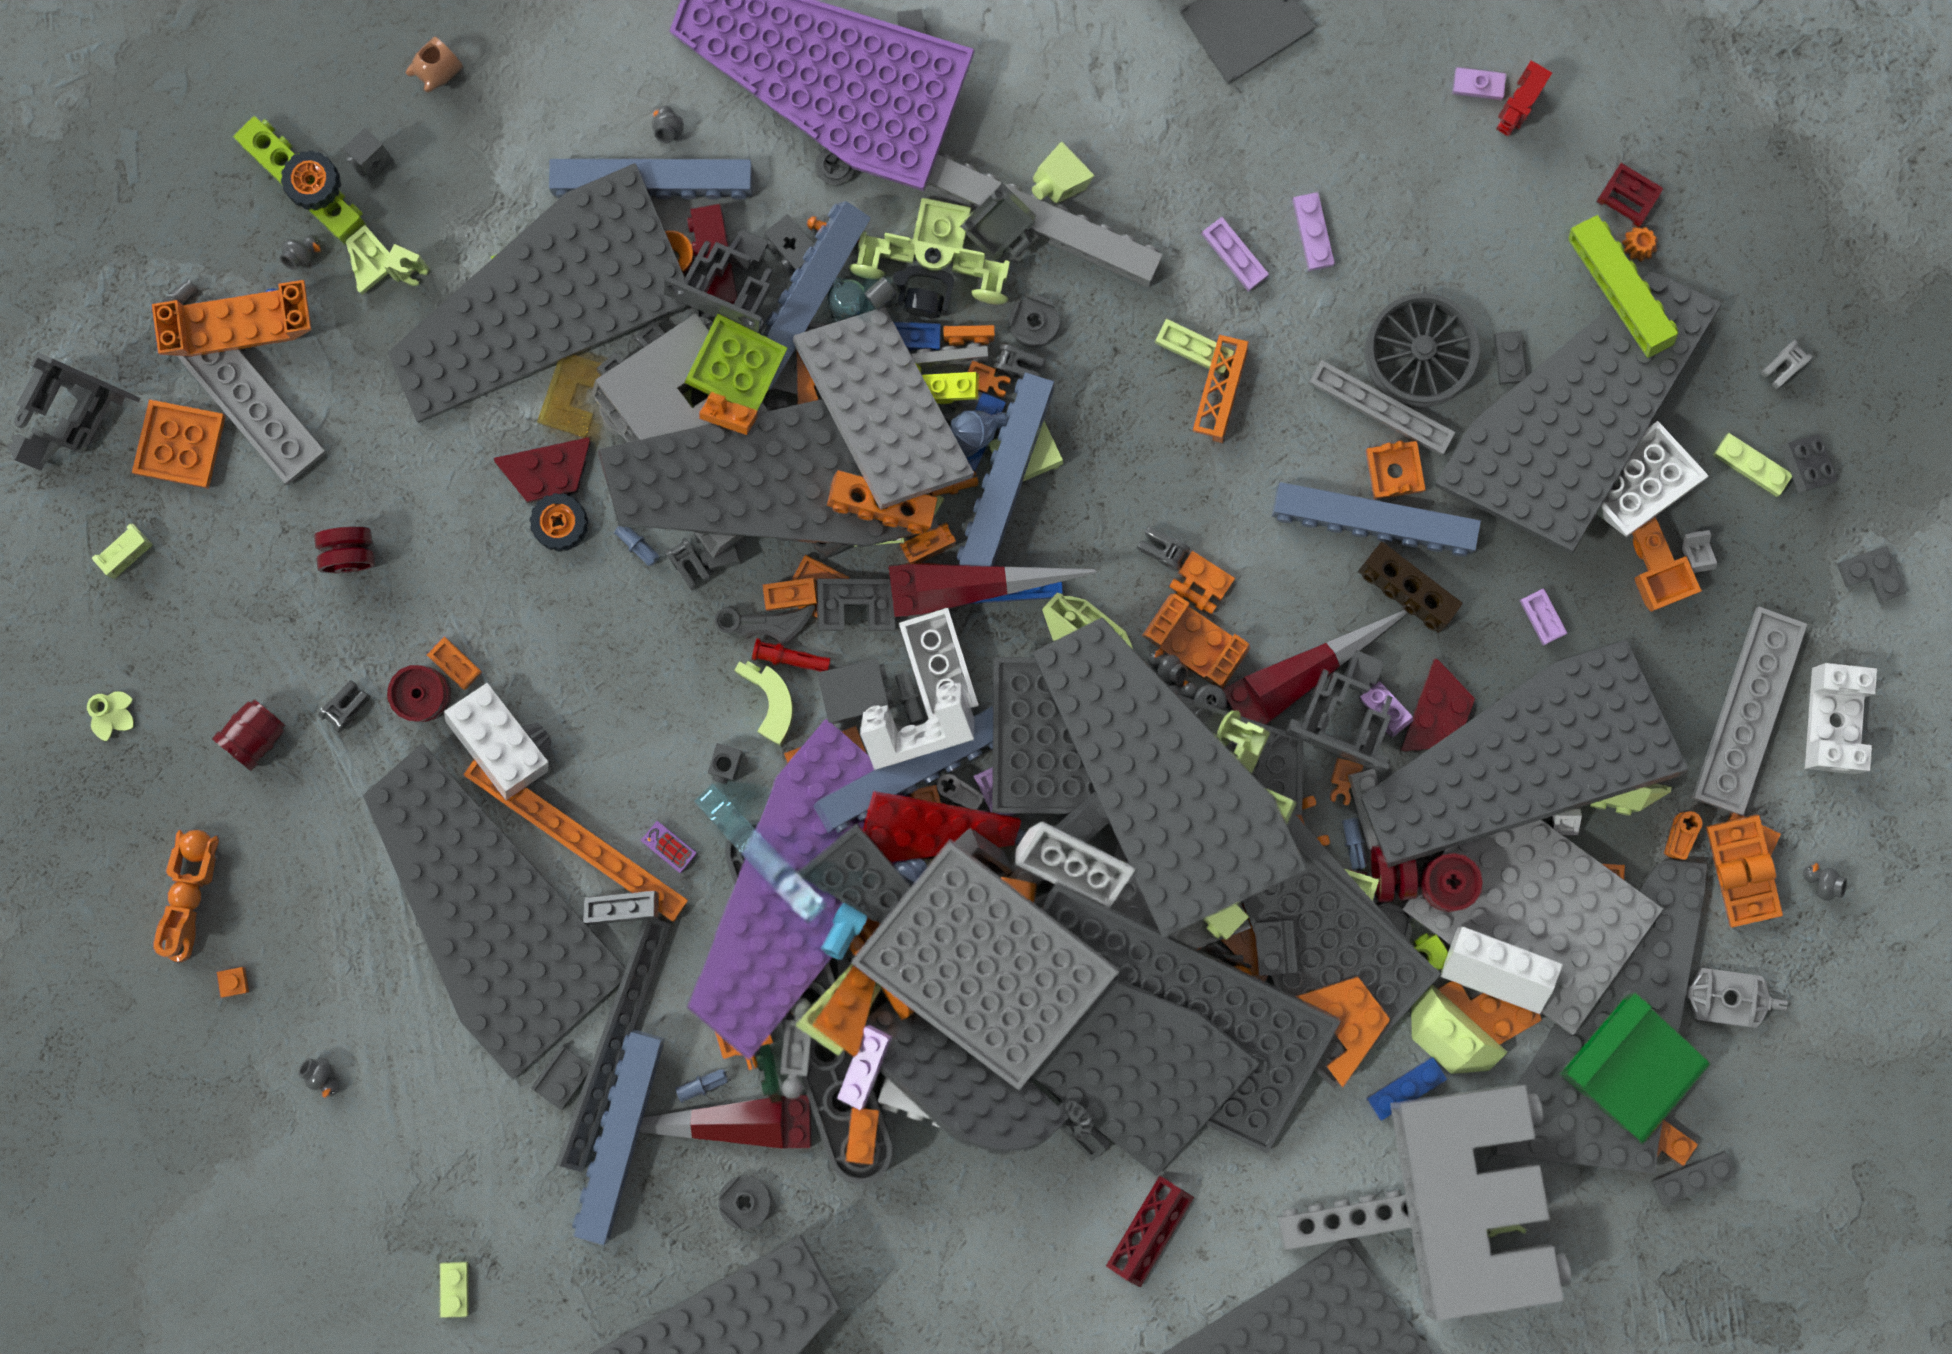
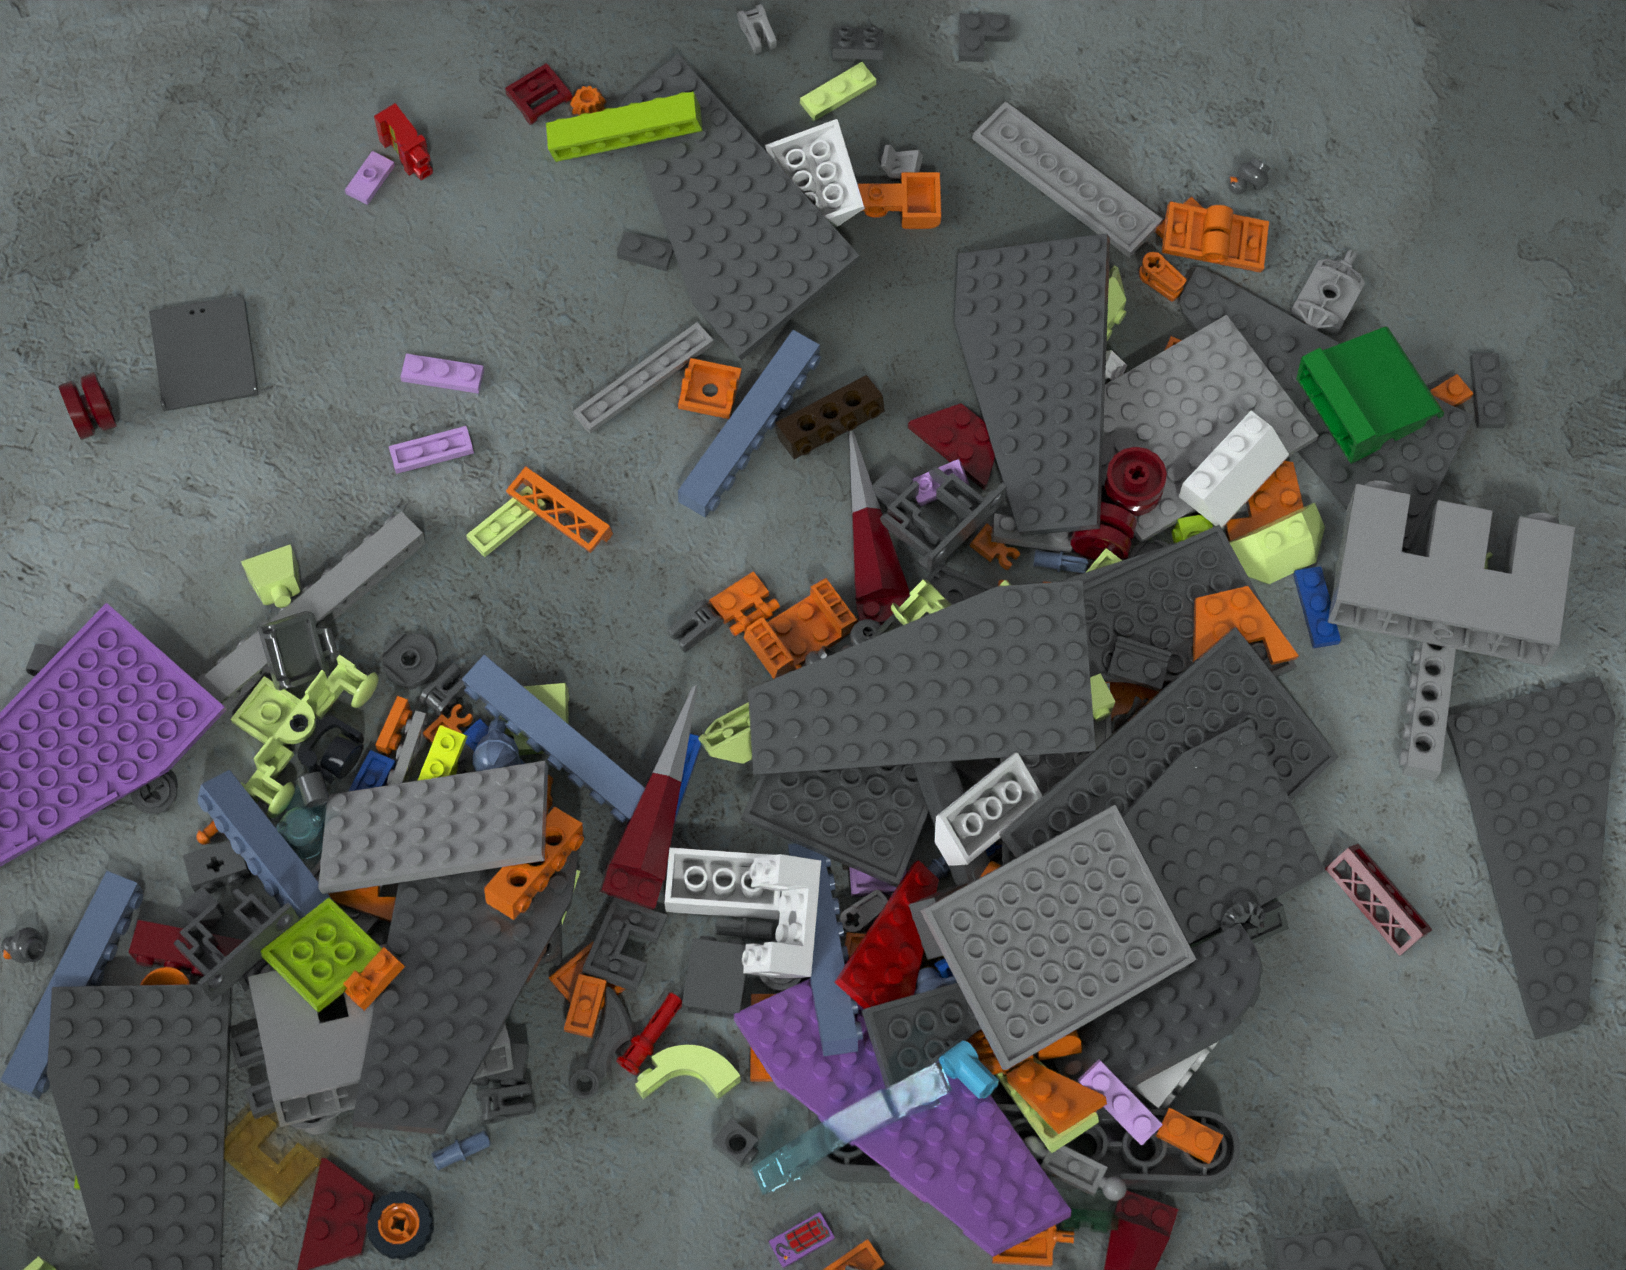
camera: 70 degrees left, 15 degrees down
(928, 544) = (592, 852): orange hinge -> none
(1422, 349) = (604, 320): dark grey wheel -> none
(1543, 617) = (907, 315): lavender plate -> none
(1841, 692) = (1078, 101): white plate -> none

